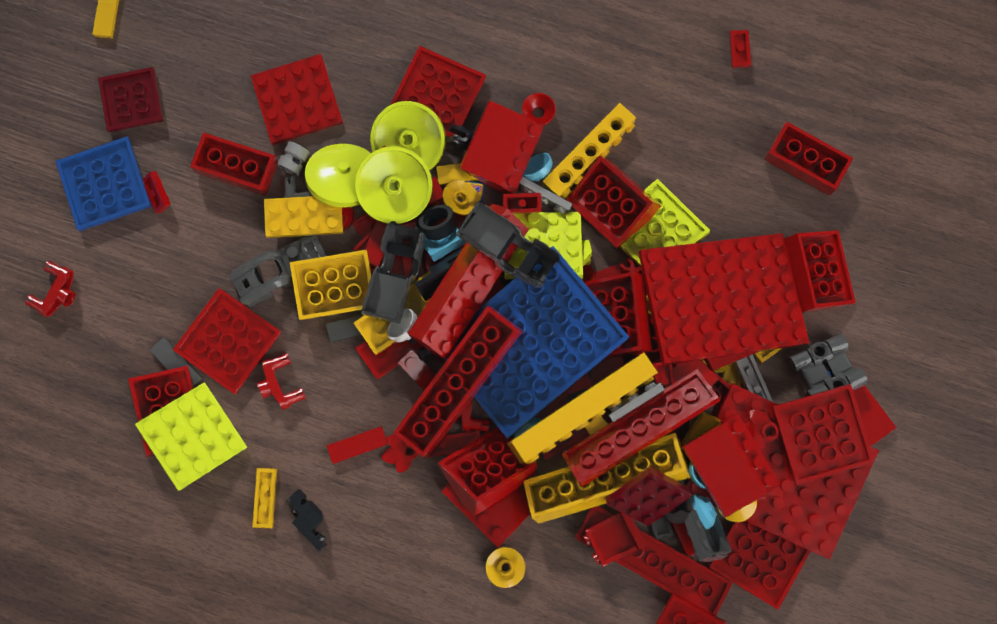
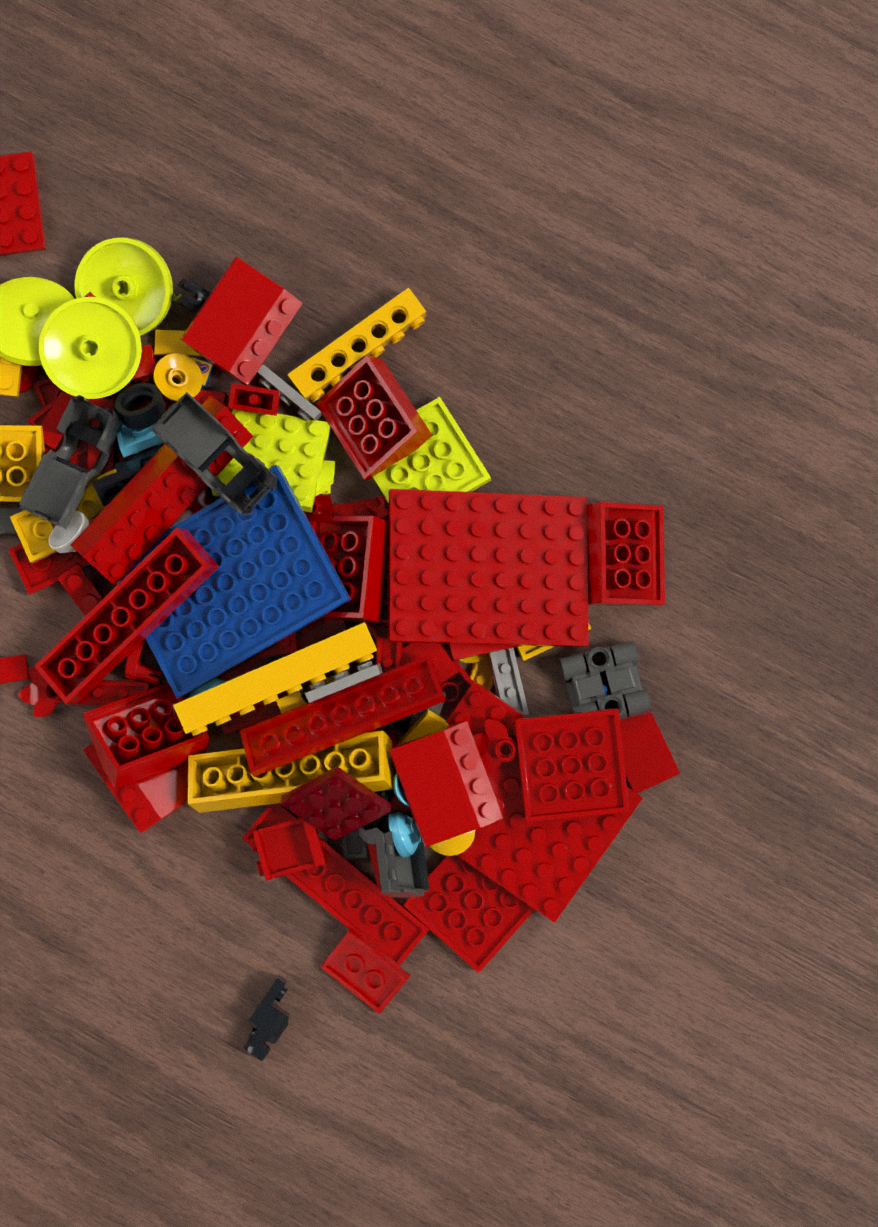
camera: 10 degrees right, 5 degrees up
(441, 86) = (180, 225): red plate -> none
(507, 578) = (134, 859): yellow dish -> none
(538, 167) = (286, 354): medium azure piece -> none
(539, 101) = (301, 265): red piece -> none
(739, 49) = (584, 241): red plate -> none
(808, 158) = (640, 404): red brick -> none

